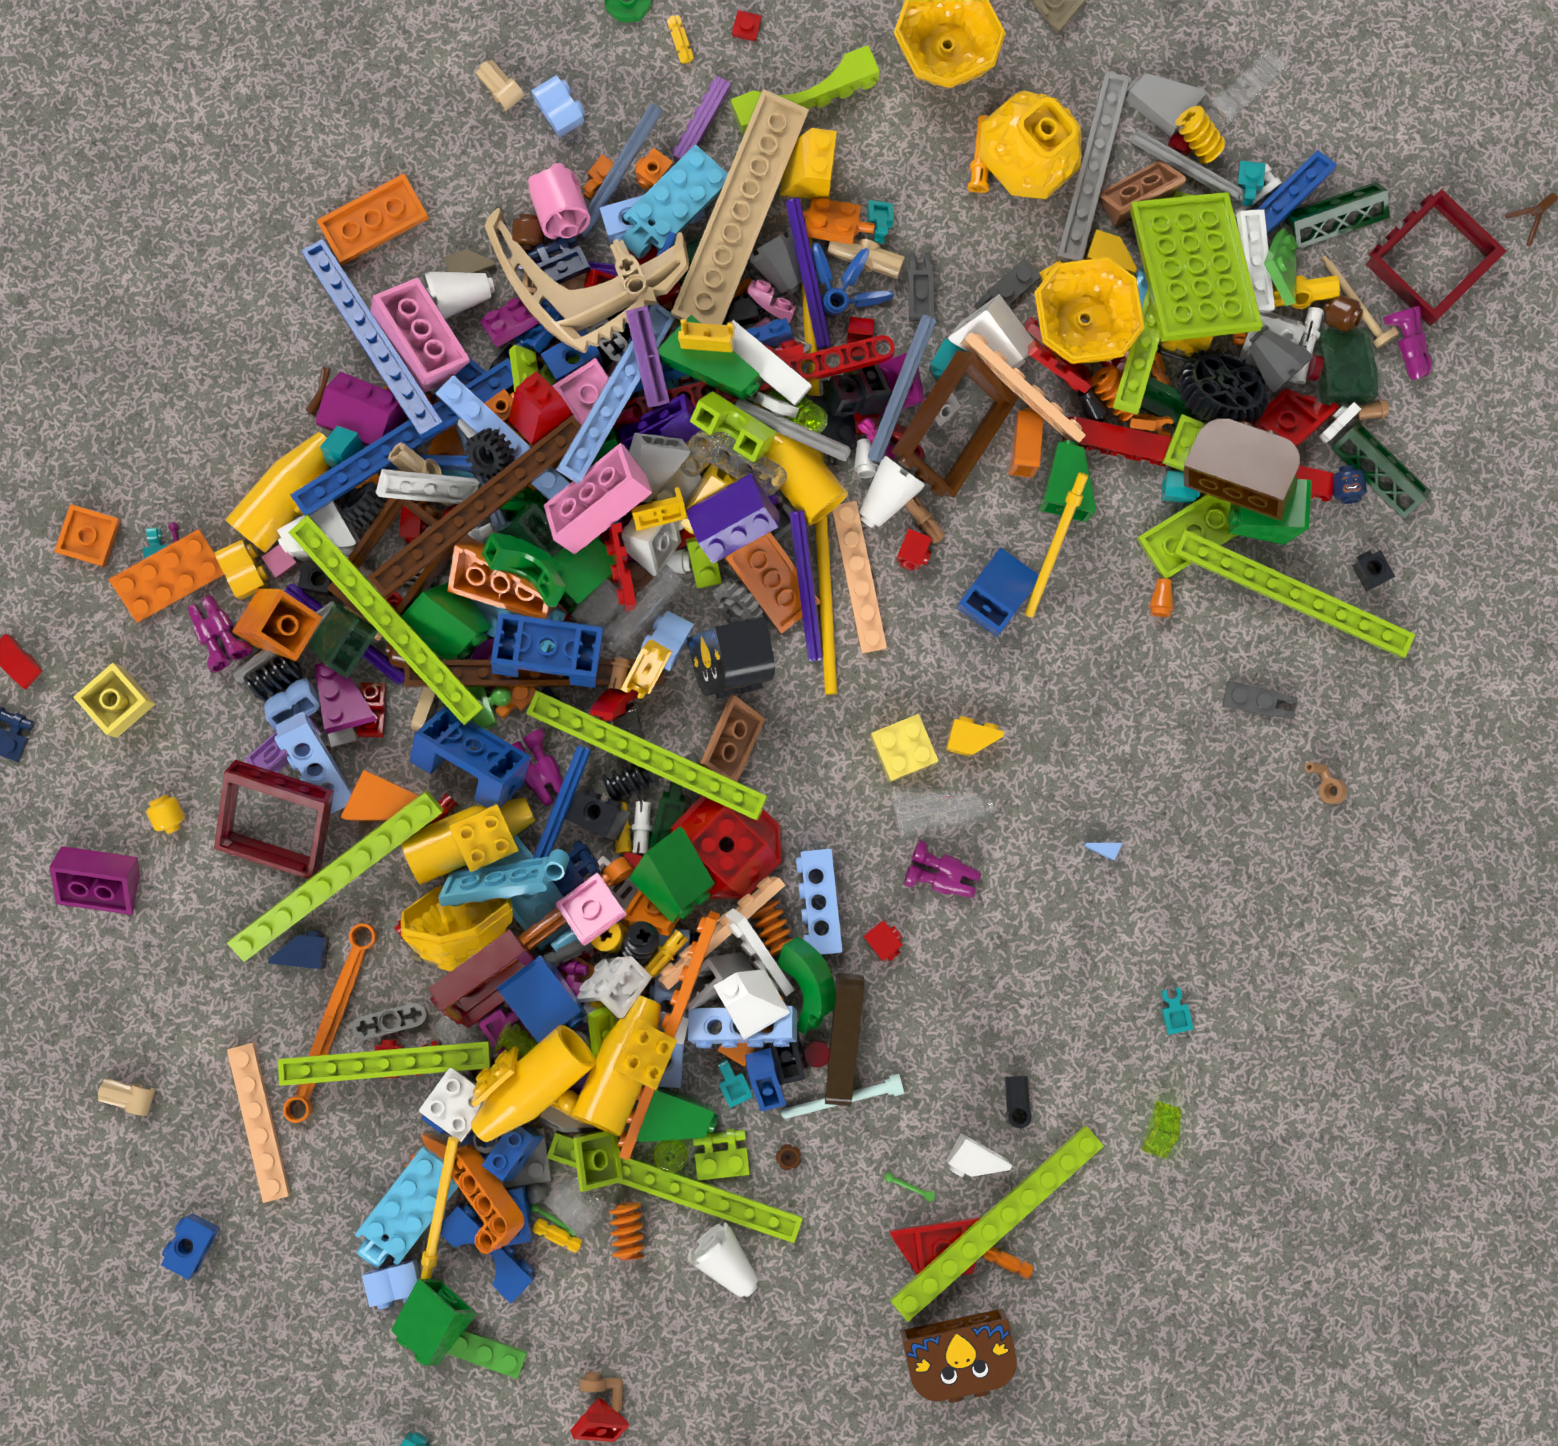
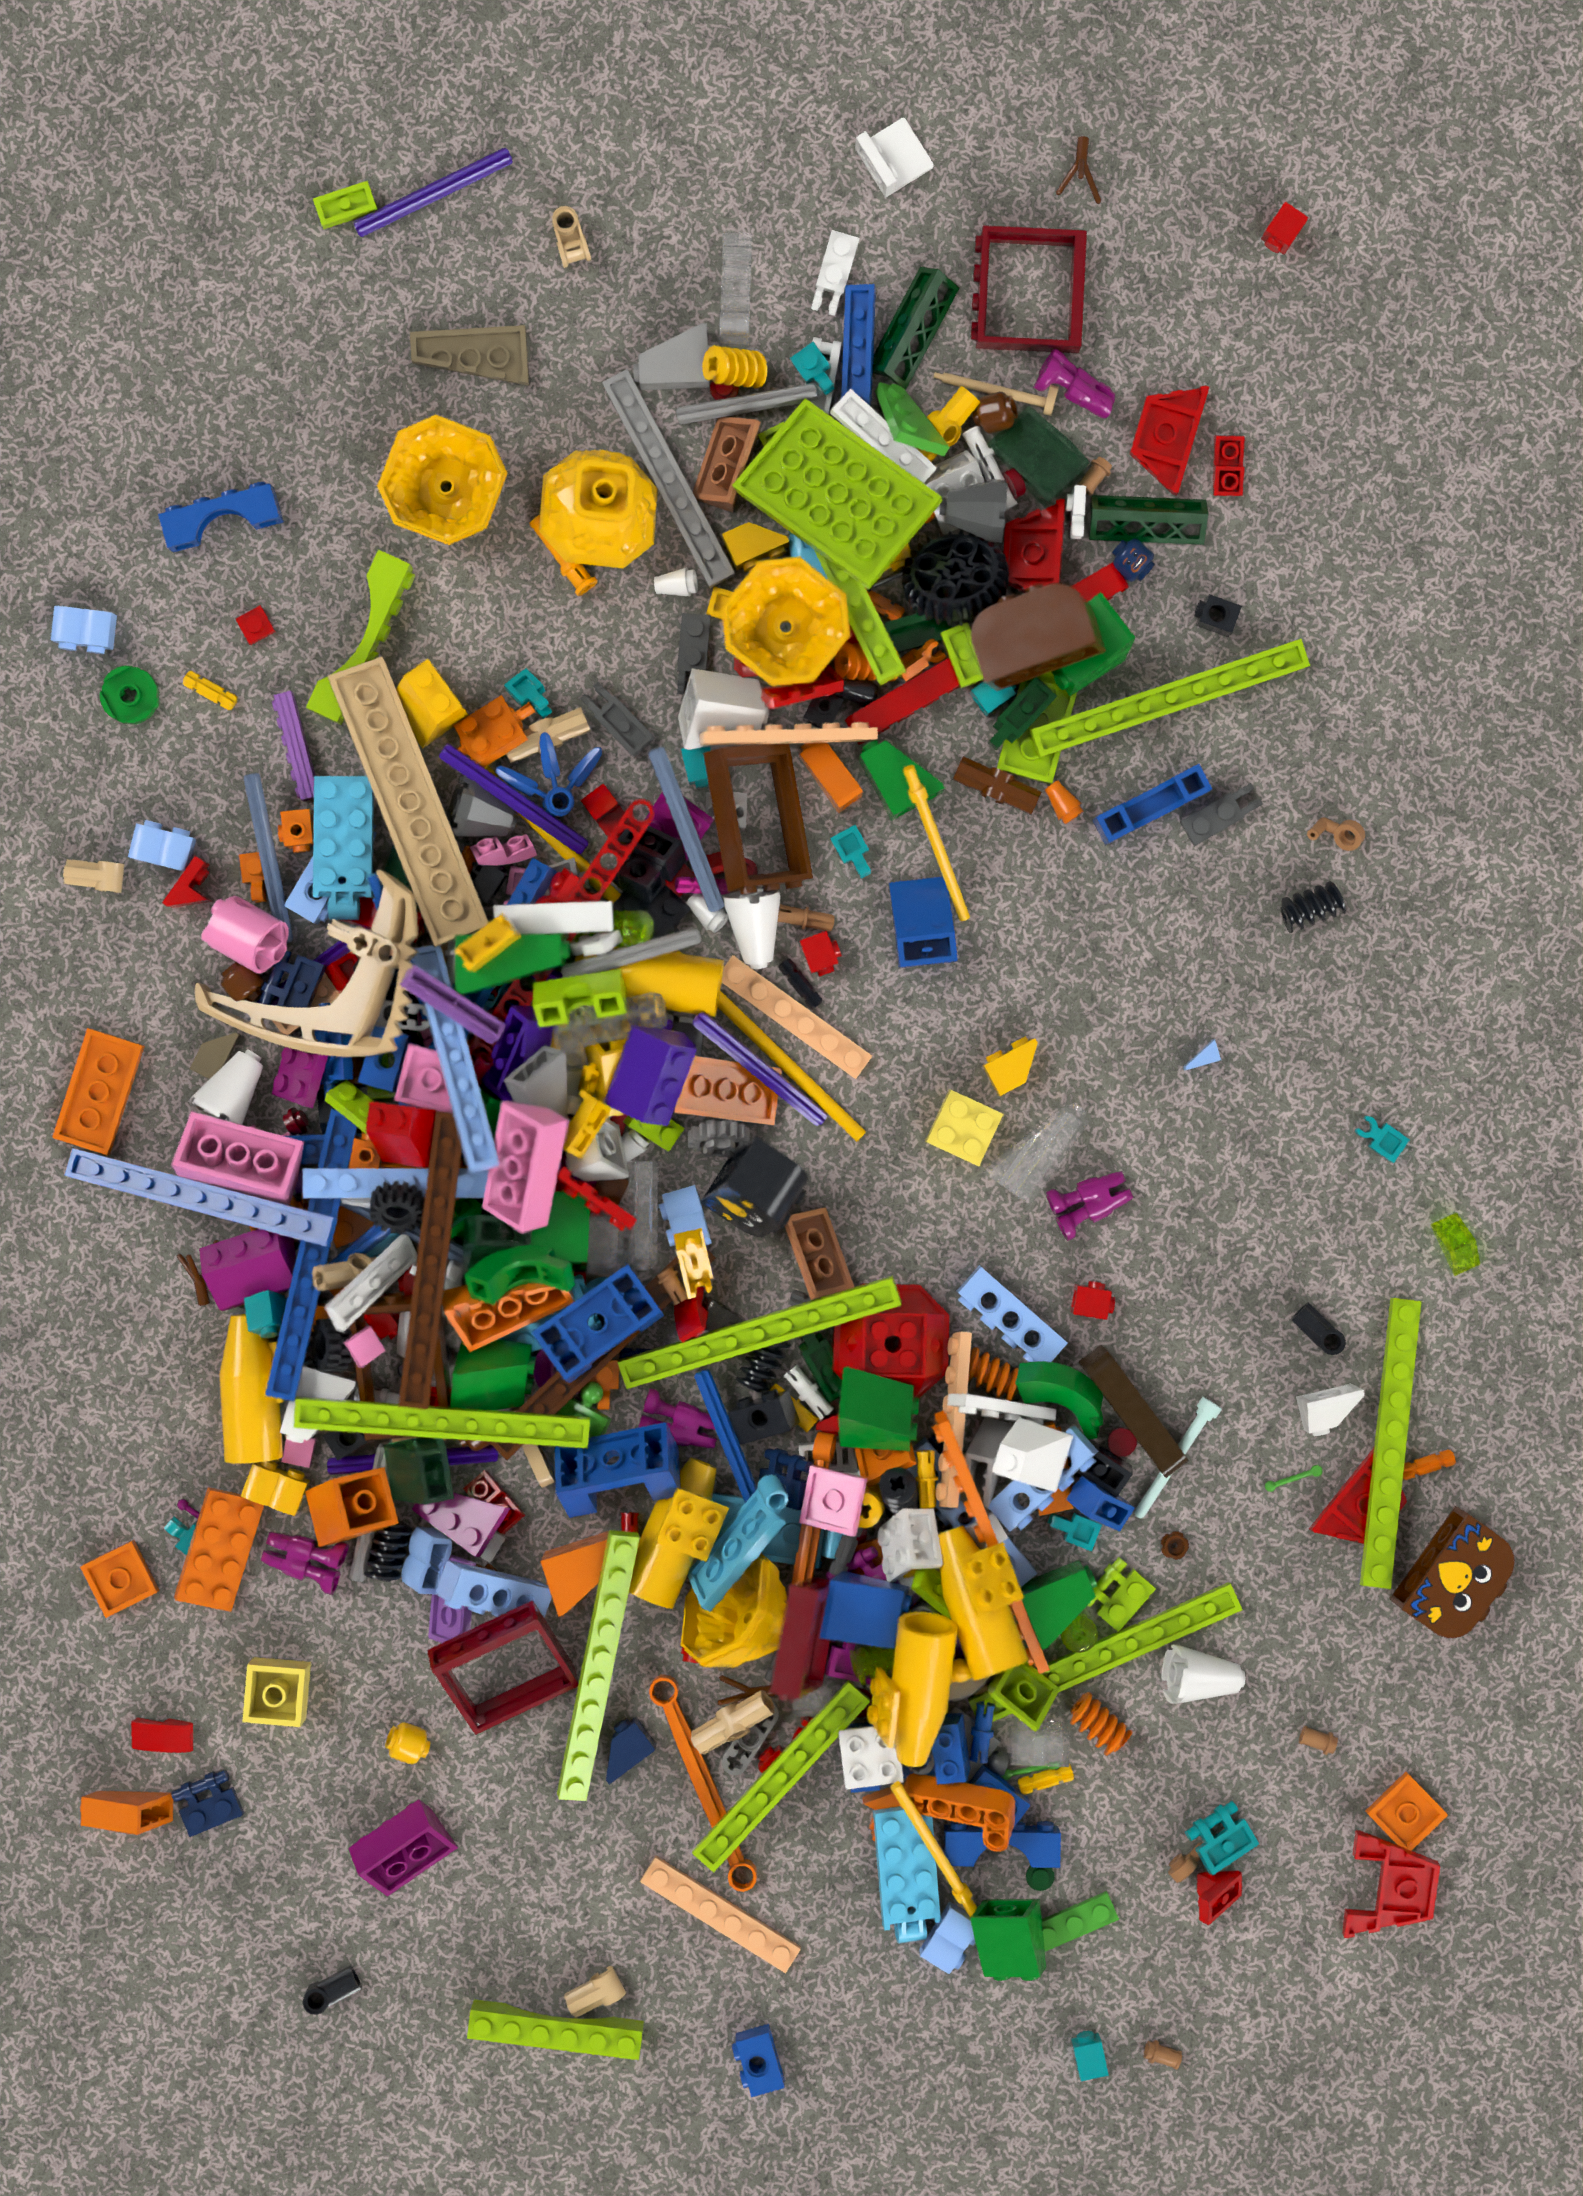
camera: 40 degrees left, 5 degrees up
(55, 1070) = (516, 2026): none -> lime arch
(383, 523) = (364, 1346): none -> bright pink tile
(387, 999) = (732, 1722): none -> tan piece
(414, 990) = (748, 1691): none -> reddish brown plant
(478, 350) = (295, 1121): none -> dark red plate
(491, 1299) = (1039, 1878): none -> dark green plate
(544, 1161) = (982, 1732): none -> blue pin
(545, 143) = (183, 891): none -> red slope
(637, 1396) = (1225, 1846): none -> teal plate
(691, 488) = (589, 1079): none -> yellow axle
(764, 1382) = (1318, 1740): none -> medium nougat pin
(882, 559) = (800, 983): none -> black axle
(996, 502) = (851, 847): none -> teal plate
(1038, 236) = (678, 582): none -> white cone
(1068, 404) = (817, 717): none -> black brick
(1129, 548) = (997, 784): none -> reddish brown piece
(1187, 515) = (1022, 713): none -> dark green hinge
(1237, 657) = (1152, 804): none -> blue arch
(1266, 813) = (1311, 905): none -> black piece
(1319, 136) = (835, 269): none -> white hinge
(1420, 99) = (893, 156): none -> white bracket
(1443, 426) = (1167, 434): none -> red wing
(1465, 482) = (1228, 465): none -> red slope

